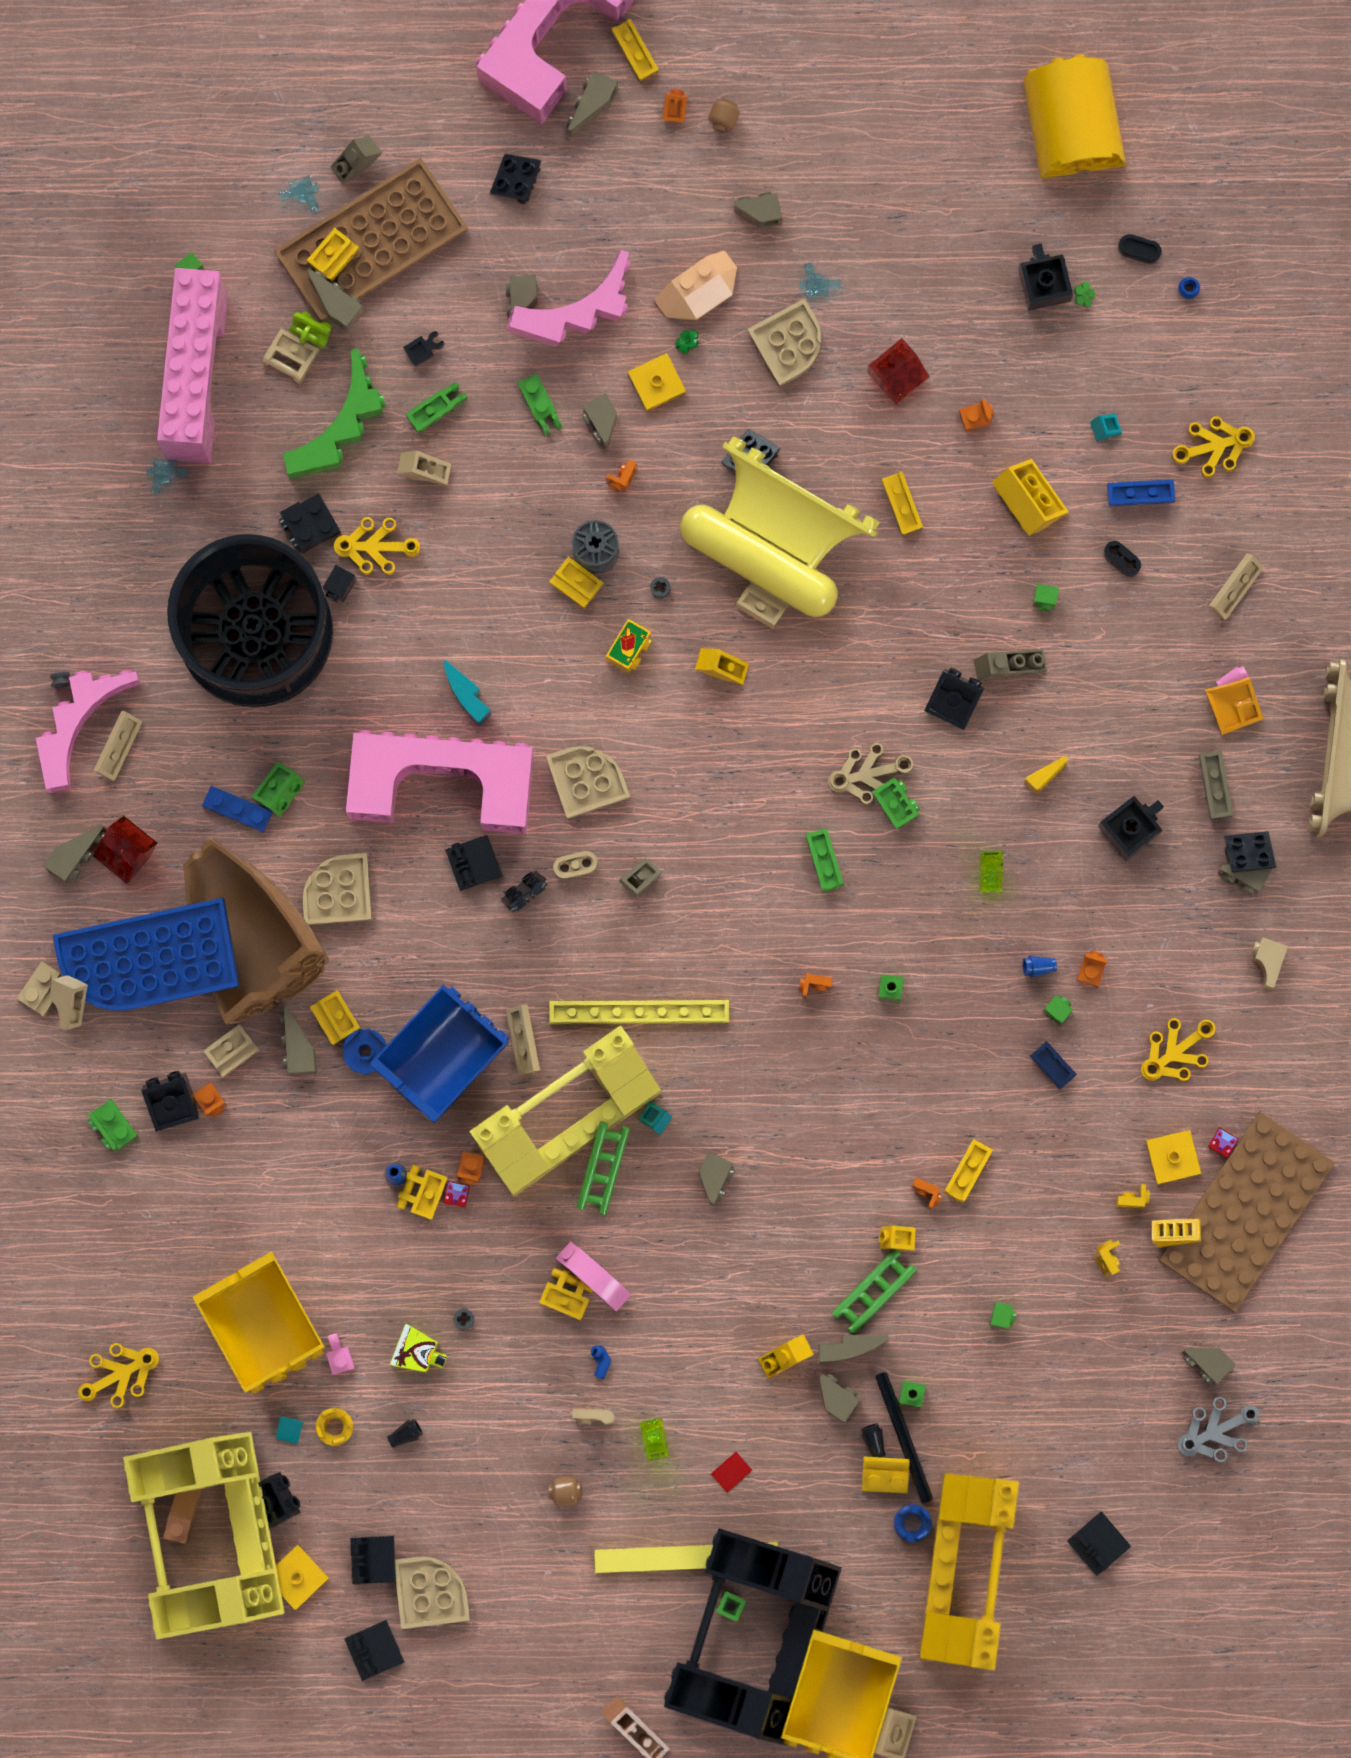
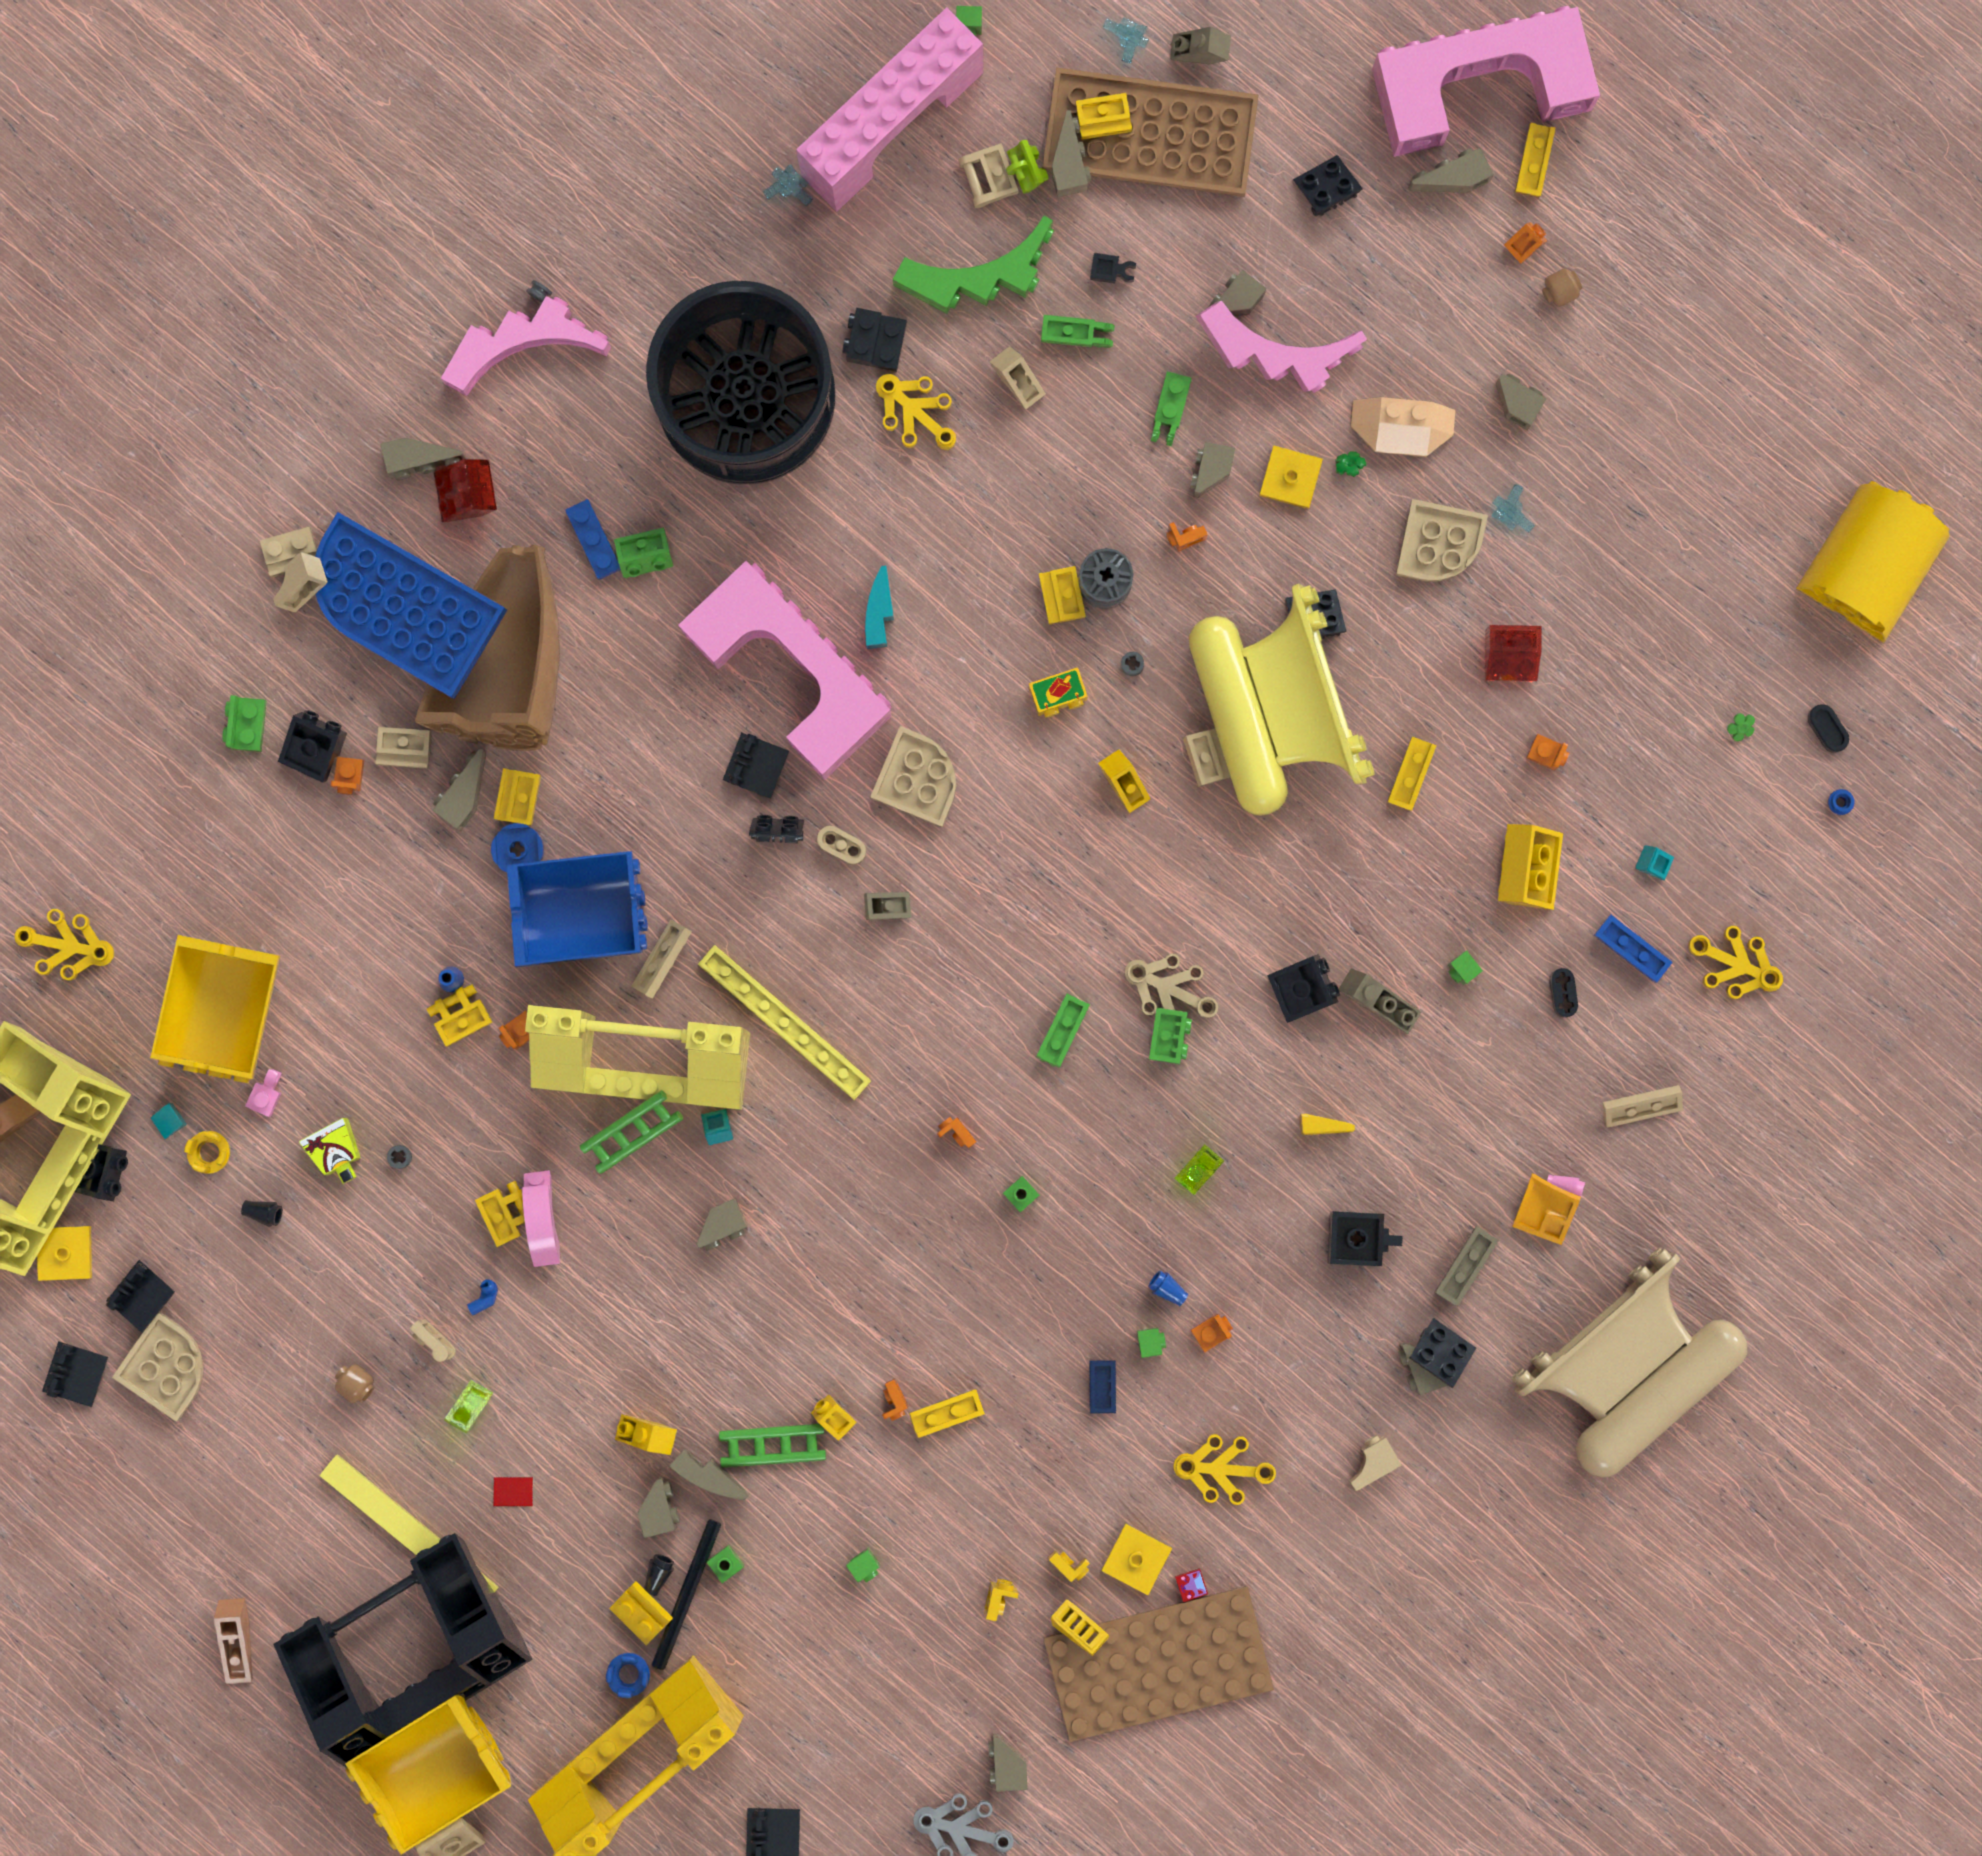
camera: 40 degrees right, 5 degrees up
(118, 745) = (537, 393): tan plate -> none
(338, 891) = (616, 688): tan plate -> none
(339, 584) = (853, 417): black brick -> none
(456, 1194) = (487, 1043): tile -> none
(722, 1608) = (402, 1614): bright green plate -> none
(1055, 273) = (1731, 679): black hinge -> none

